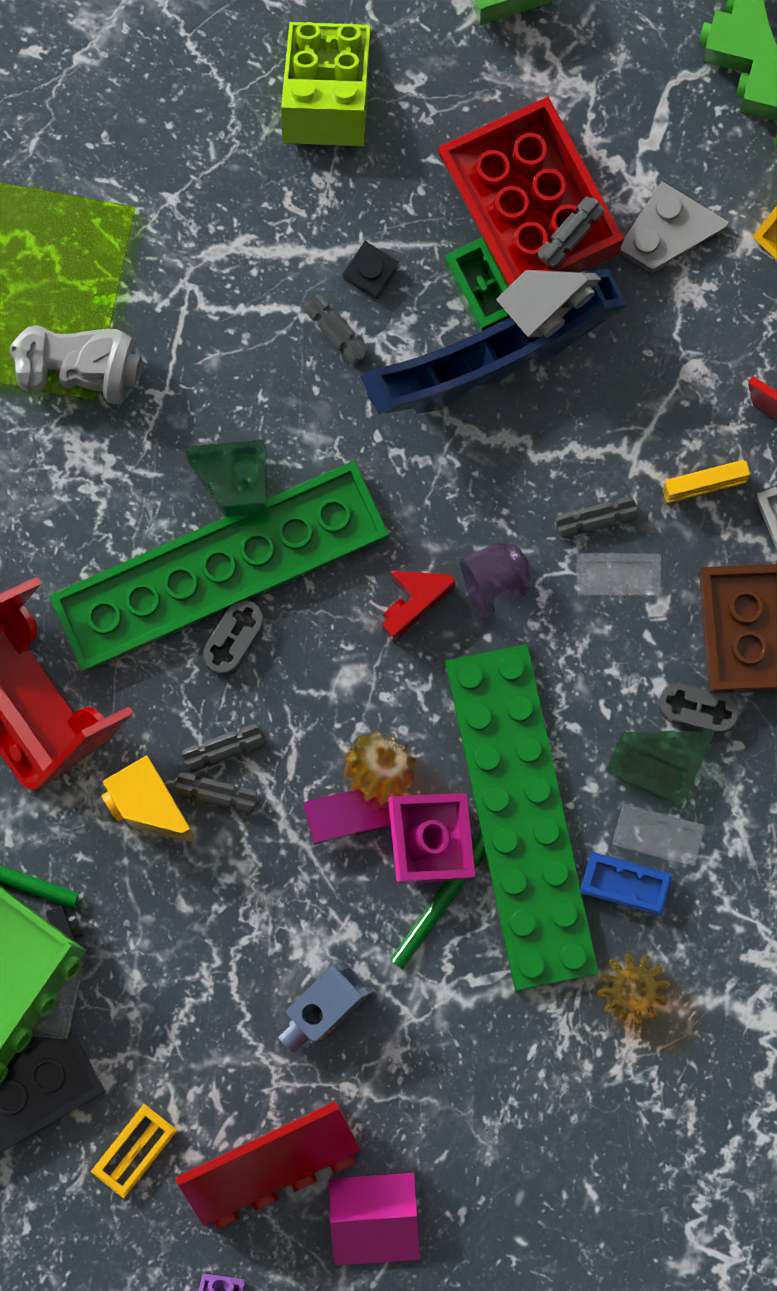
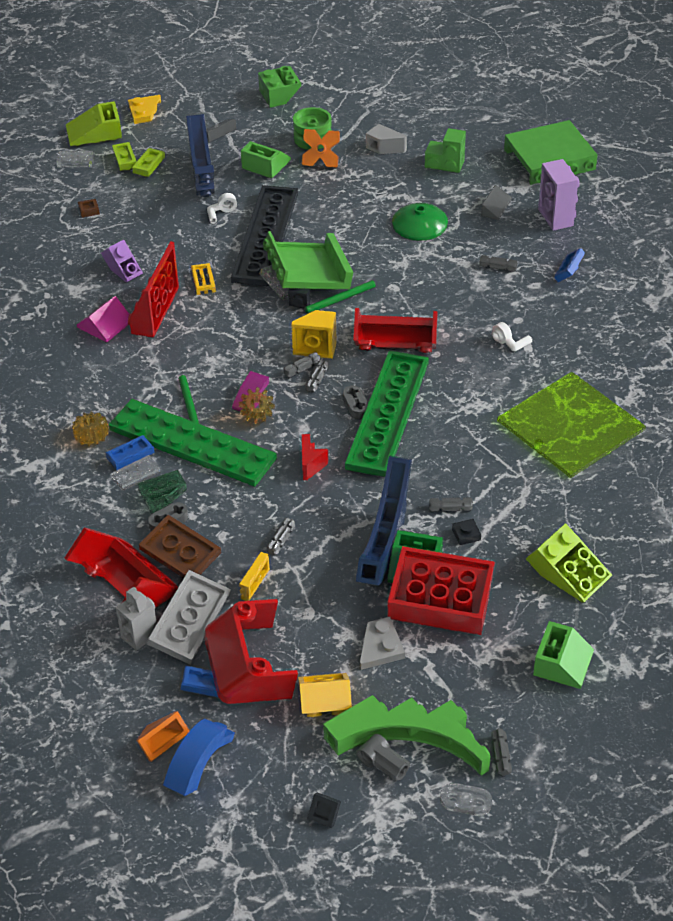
camera: 125 degrees right, 35 degrees down
(88, 359) = (514, 413): light grey animal -> none
(233, 475) = (418, 432): clear green wing -> none
(336, 993) = (189, 338): sand blue torso -> none
(431, 838) = (215, 401): dark pink slope -> none
(494, 571) = (291, 482): clear purple helmet -> none
(542, 298) = (384, 541): light grey slope -> none
(571, 232) = (407, 578): dark grey axle -> none
(618, 575) = (249, 525): clear plate -> none

